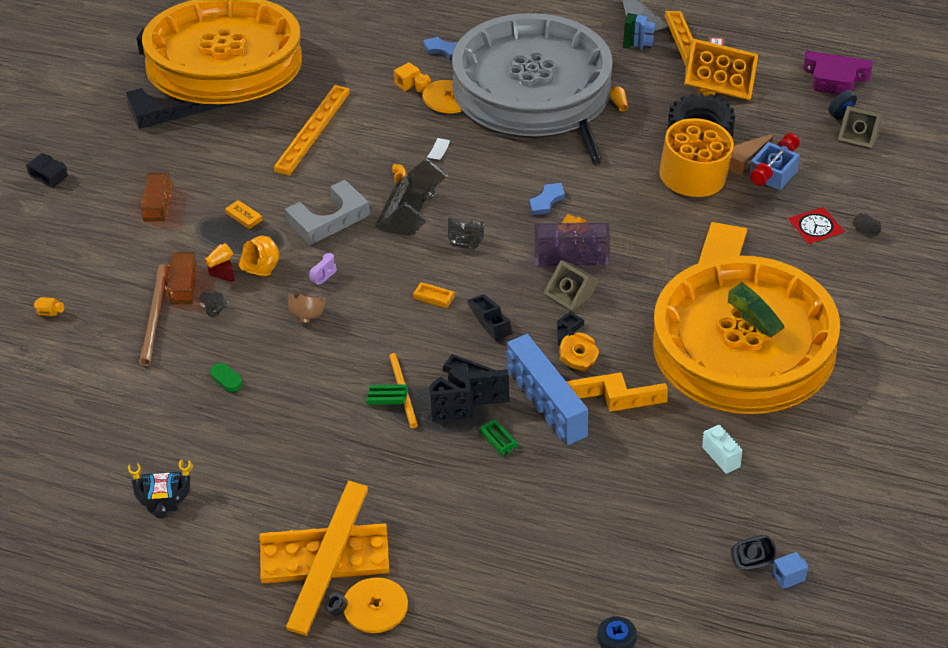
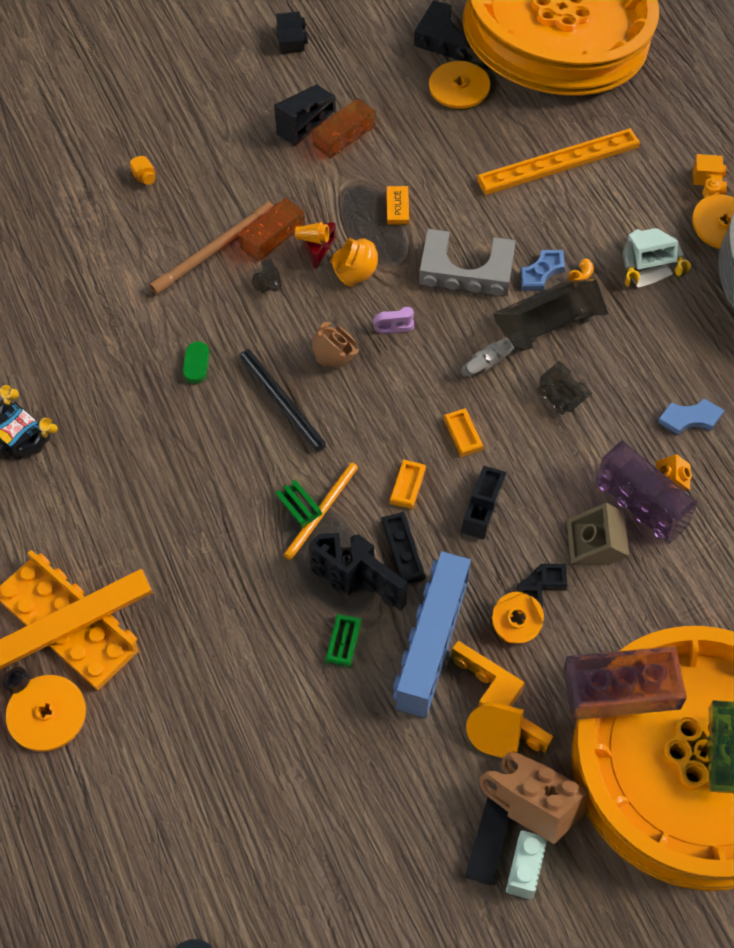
camera: 45 degrees right, 15 degrees up
(119, 206) = (303, 113): none -> black wedge
(198, 129) = (445, 87): none -> light orange piece
(306, 356) = (283, 400): none -> black axle
(374, 193) = (535, 275): none -> medium blue tile
(401, 250) = (486, 358): none -> light grey hinge
(427, 133) = (652, 249): none -> light aqua torso
(435, 341) = (407, 484): none -> light orange tile
(633, 404) = (495, 728): none -> light orange tile
(677, 318) = (624, 683): none -> brick
(690, 412) = (536, 796): none -> medium nougat brick
(690, 458) = (488, 843): none -> black tile

